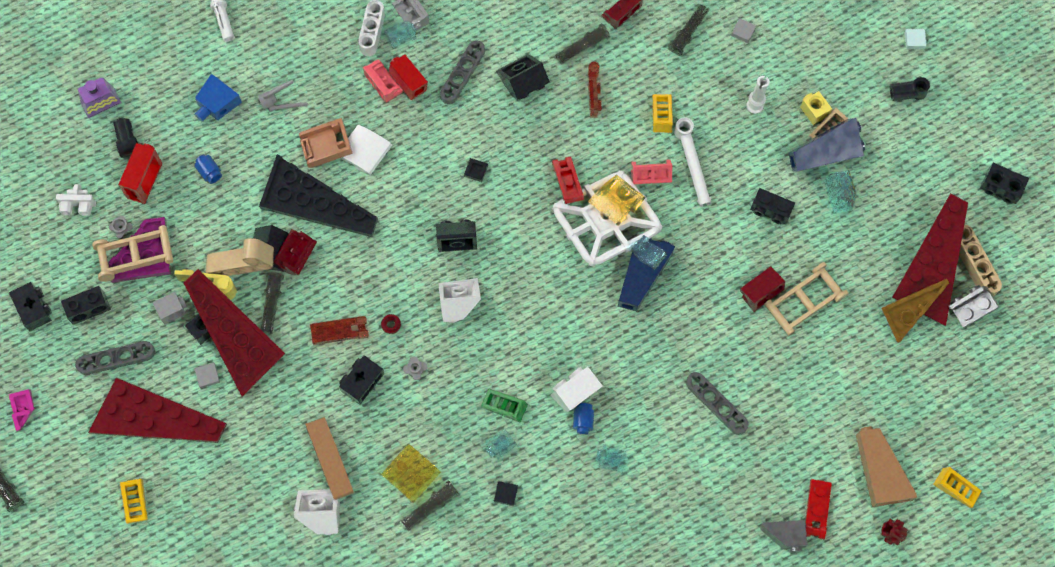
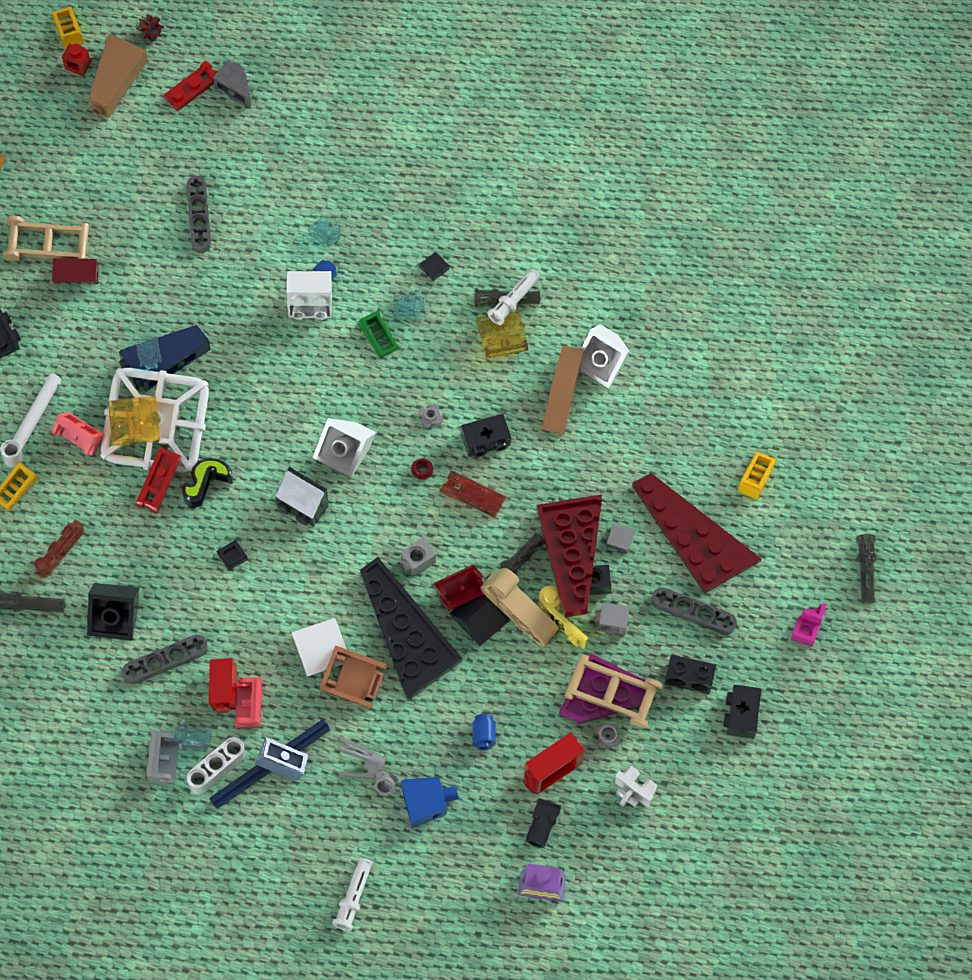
camera: 145 degrees left, 5 degrees down
(251, 92) = (386, 788): none -> light grey plate
(330, 58) = (281, 759): none -> sand blue slope
(338, 56) = (258, 772): none -> dark blue axle
(343, 262) = (419, 548): none -> light grey brick
(420, 496) = (508, 303): none -> white pin
(540, 202) = (201, 476): none -> black animal
(922, 460) = (76, 54): none -> red brick

